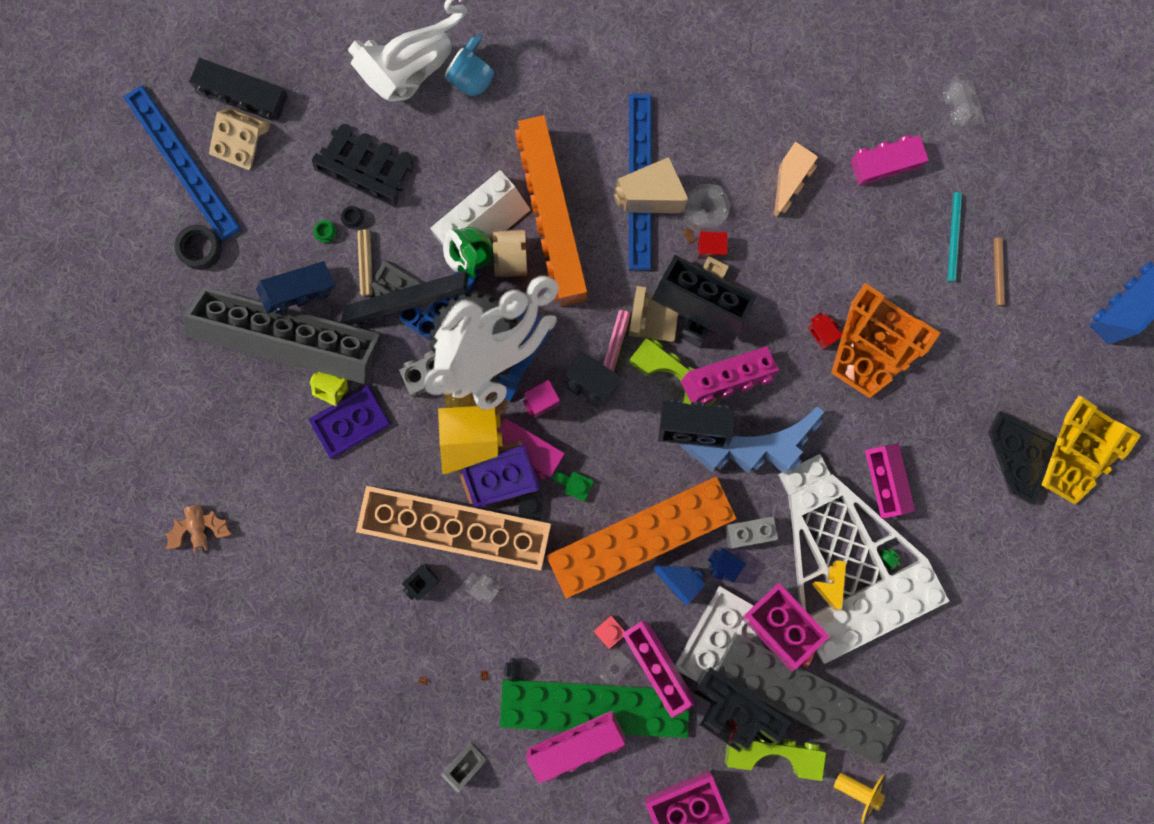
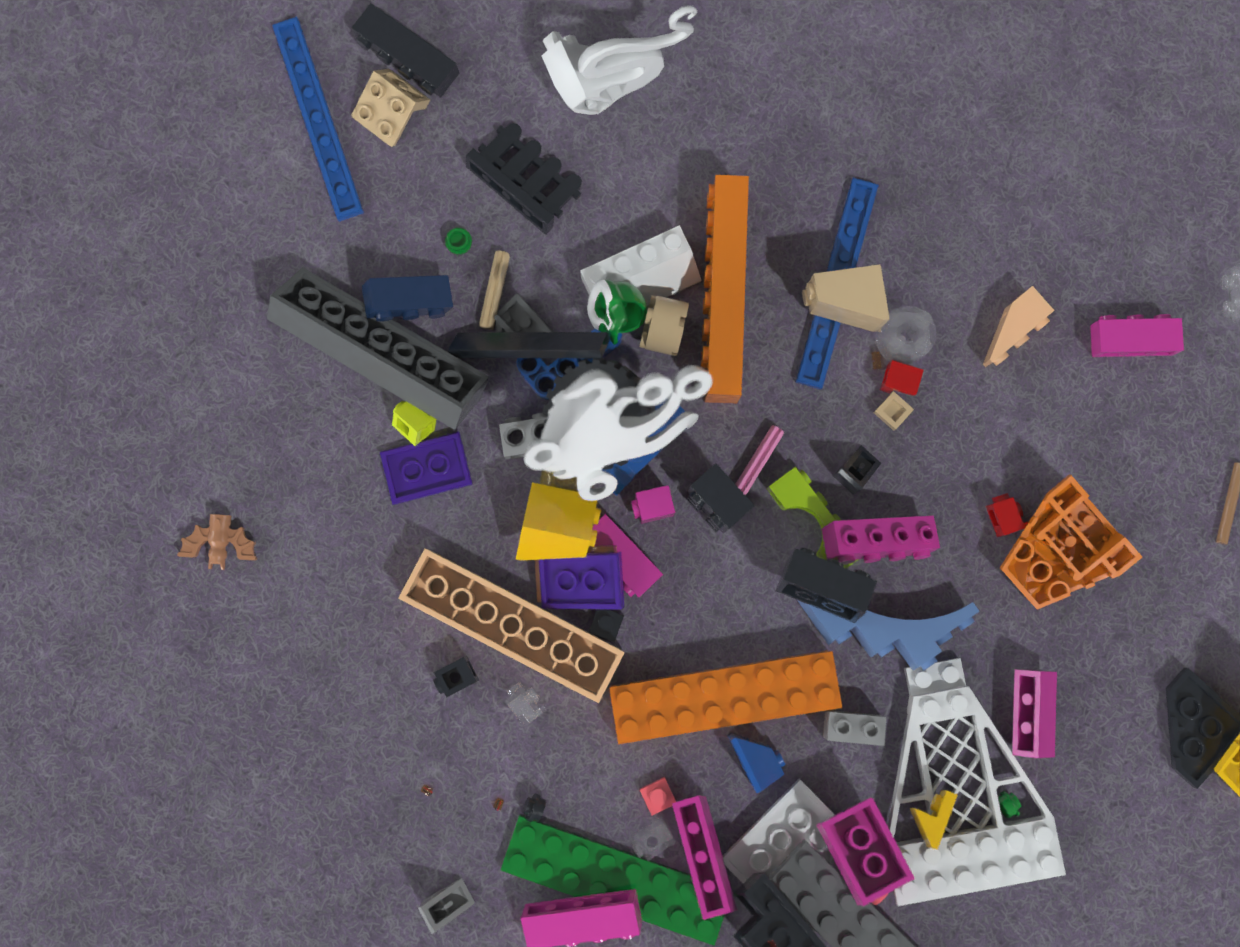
camera: 20 degrees right, 0 degrees up
(184, 236) = (302, 200): black tyre -> none
(352, 217) = (494, 233): black plate -> none
(468, 71) = (675, 102): dark azure piece -> none
(576, 484) = (665, 614): green plate -> none
(651, 319) = (811, 443): tan bracket -> none
(704, 298) = (876, 439): black brick -> none
(725, 565) = (813, 756): clear blue brick -> none
(954, 237) = (1188, 448): teal bar -> none

